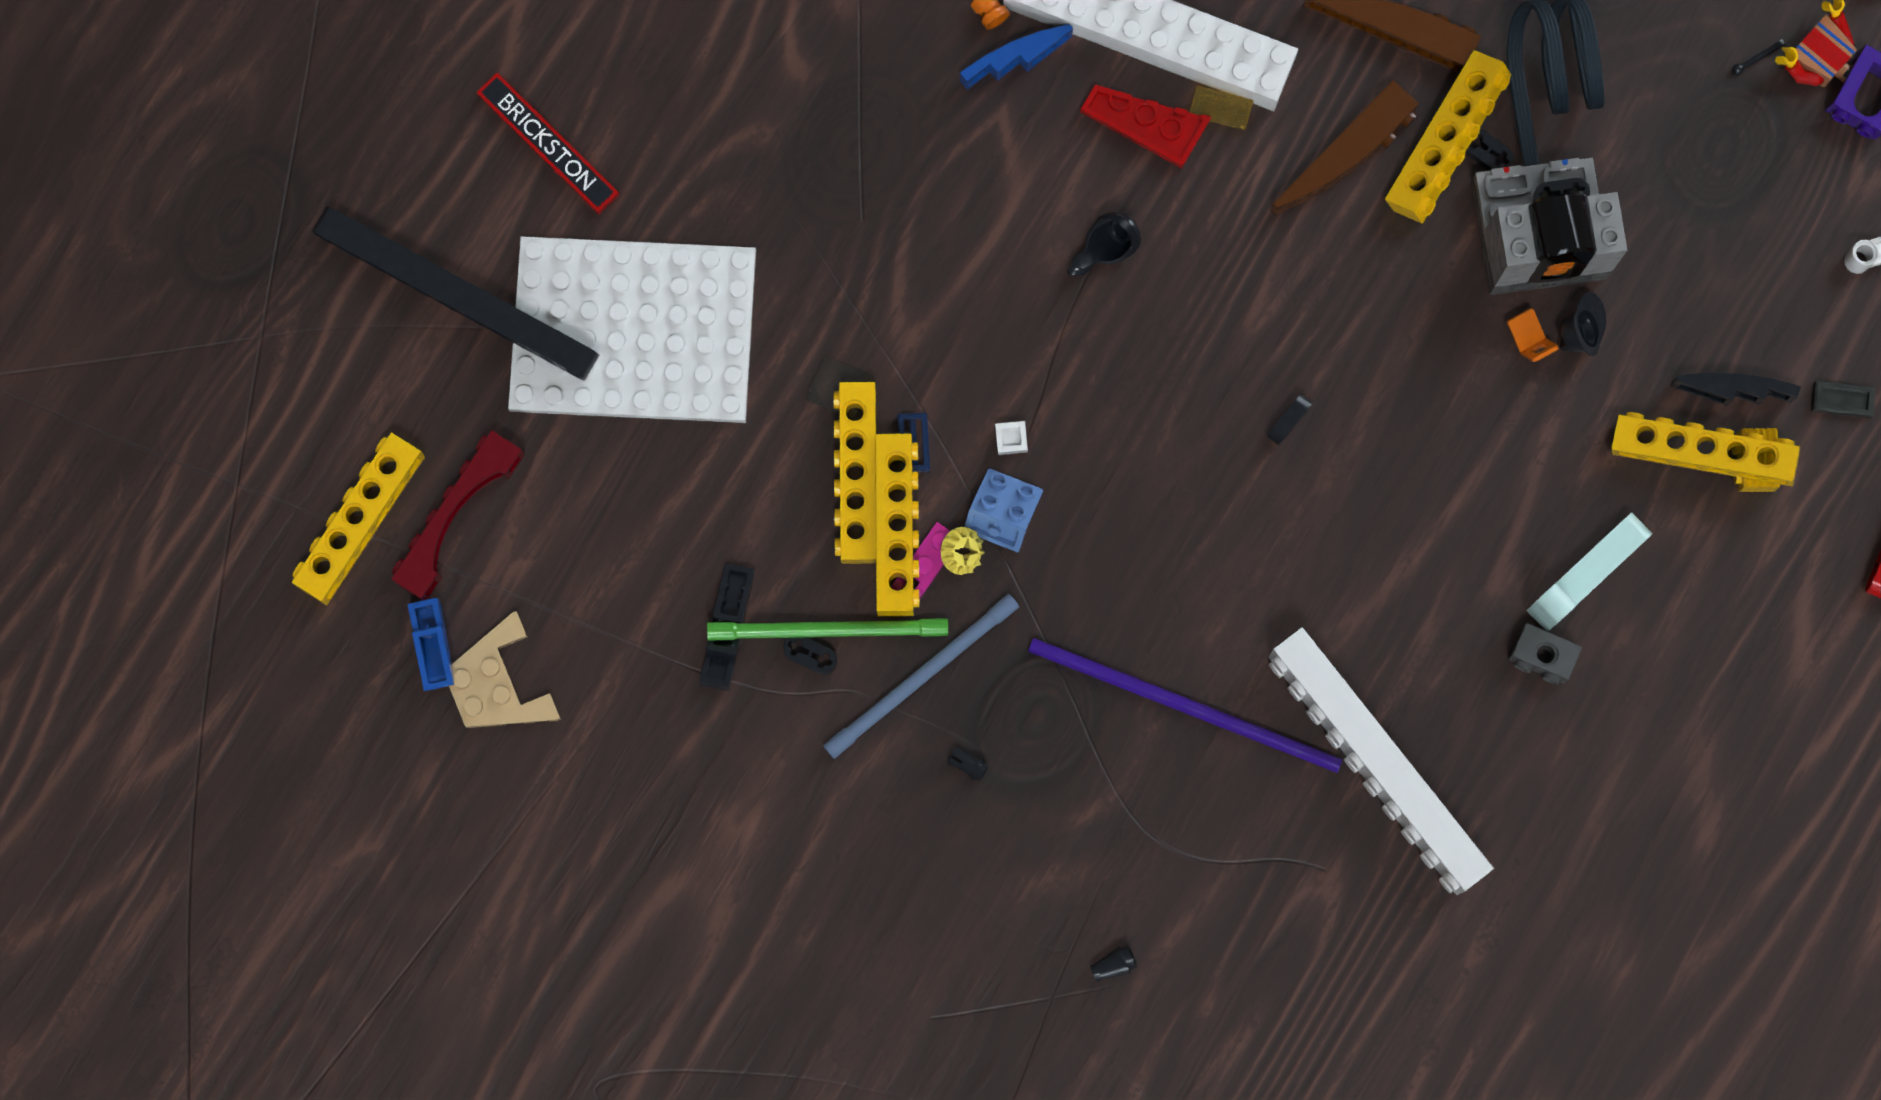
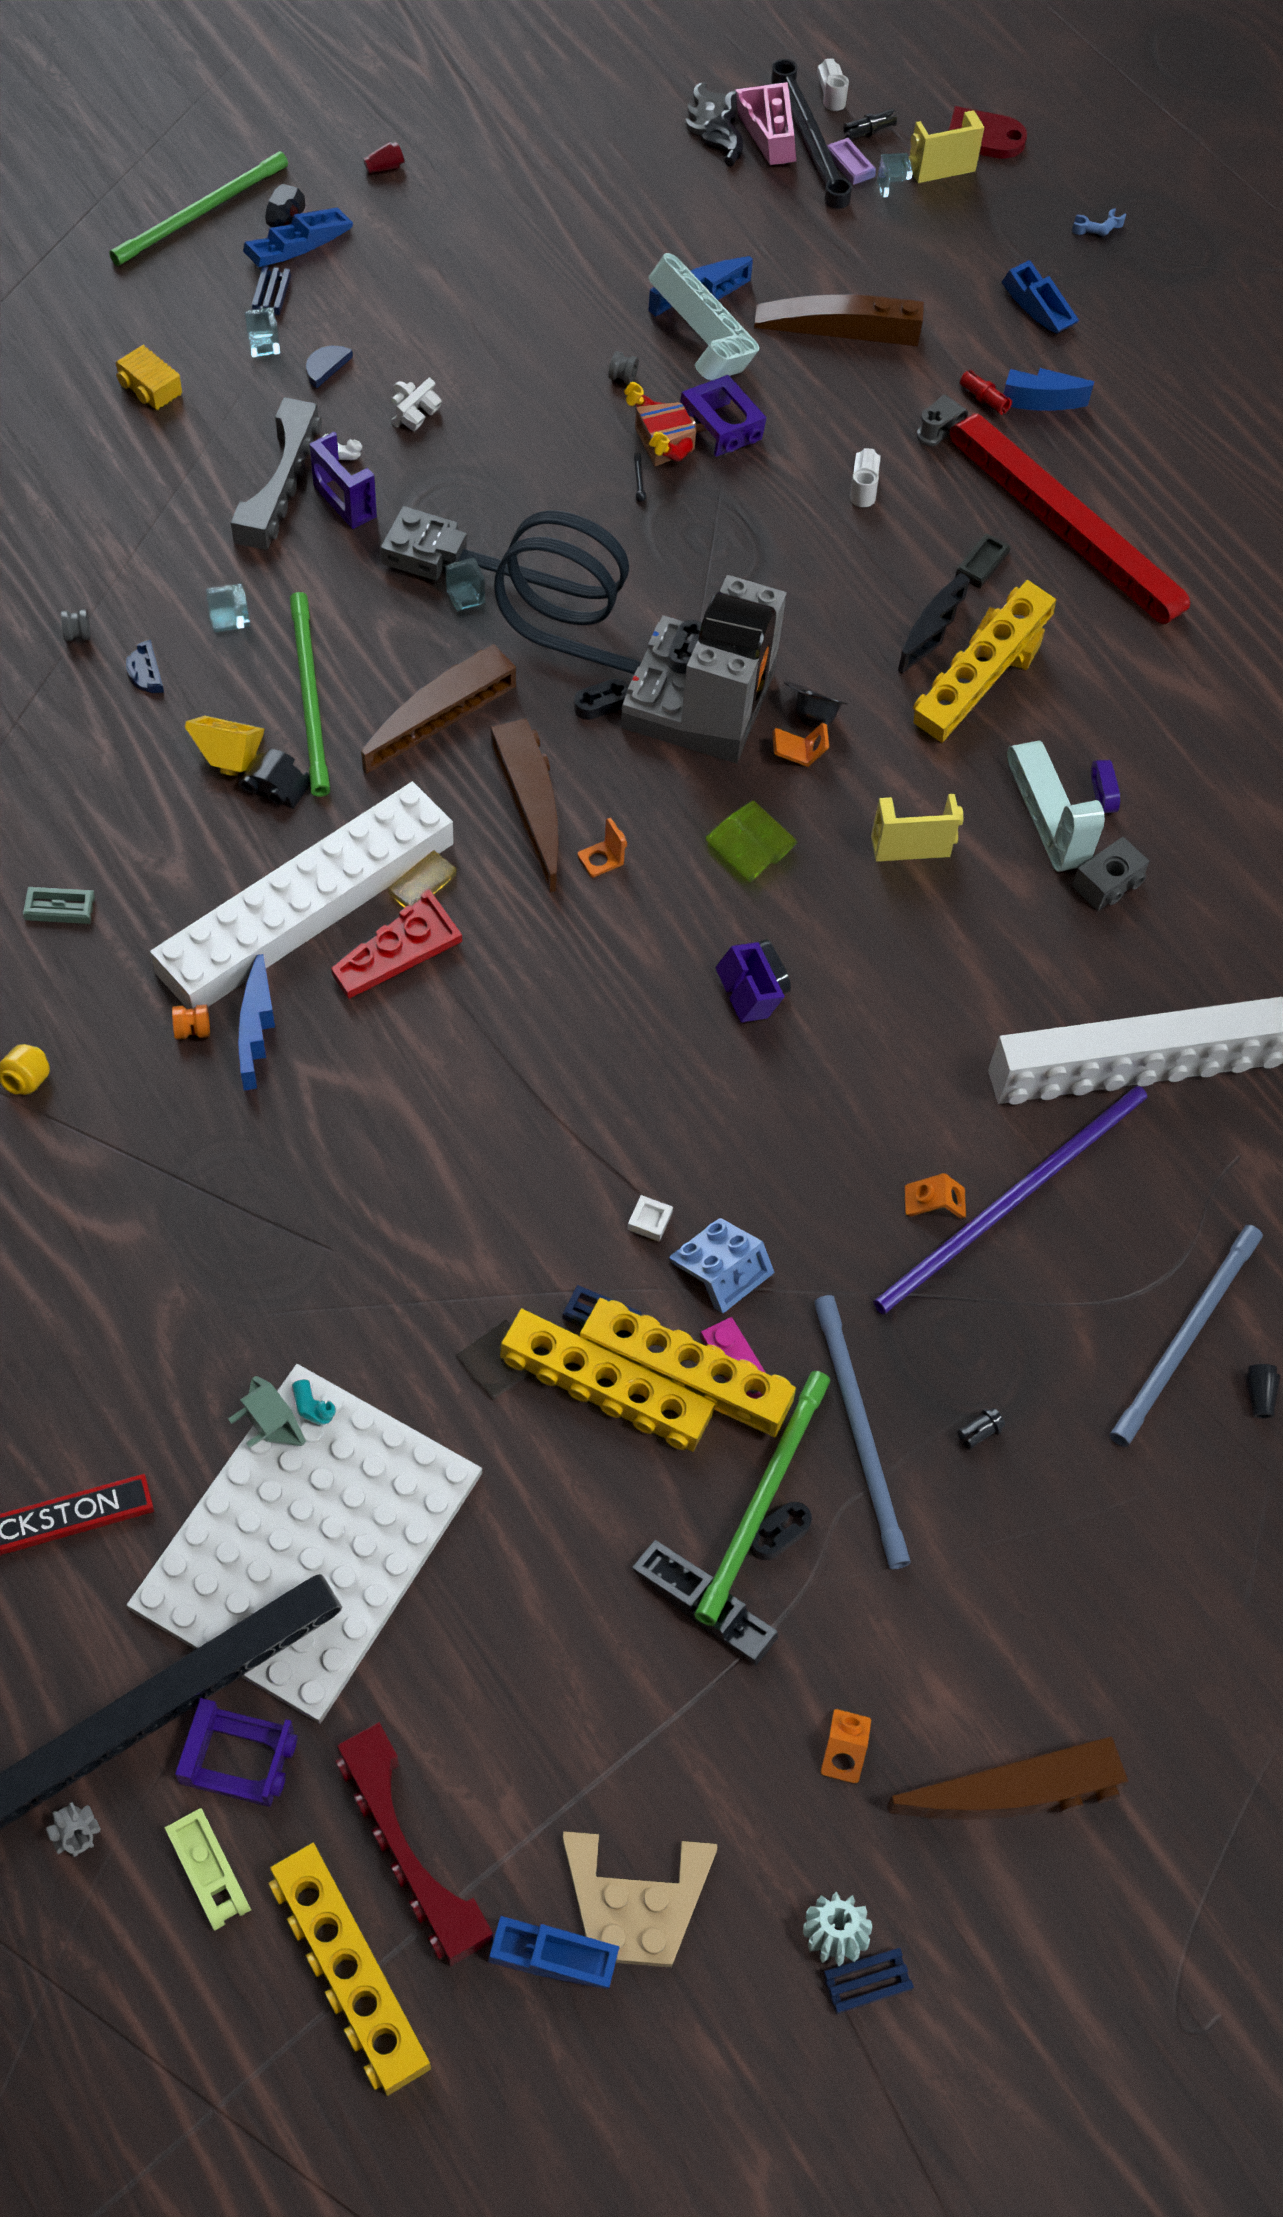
camera: 70 degrees left, 20 degrees down
(355, 293) = (73, 1829): none -> light grey gear
(376, 392) = (207, 1867): none -> yellowish green plate
(453, 338) = (210, 1719): none -> dark purple panel
(503, 843) = (899, 1970): none -> dark blue tile
(543, 814) = (848, 1940): none -> light aqua gear
(677, 772) = (850, 1736): none -> orange bracket
(700, 250) = (269, 1415): none -> sand green piece
(708, 915) = (1023, 1787): none -> reddish brown slope
(721, 276) = (309, 1408): none -> teal arm
(958, 539) = (737, 1310): light yellow gear -> none
(1107, 242) = (500, 1028): black piece -> none
(1147, 642) = (934, 1194): none -> orange bracket
(1230, 902) = (1134, 1416): none -> sand blue piece
(1268, 404) = (751, 981): none -> dark purple piece
(1338, 239) = (612, 848): none -> orange bracket
(1410, 344) = (751, 840): none -> clear neon green slope
(1433, 145) = (528, 656): yellow brick -> none
(1481, 478) = (915, 836): none -> light yellow panel
(1638, 611) = (1105, 785): none -> dark purple beam

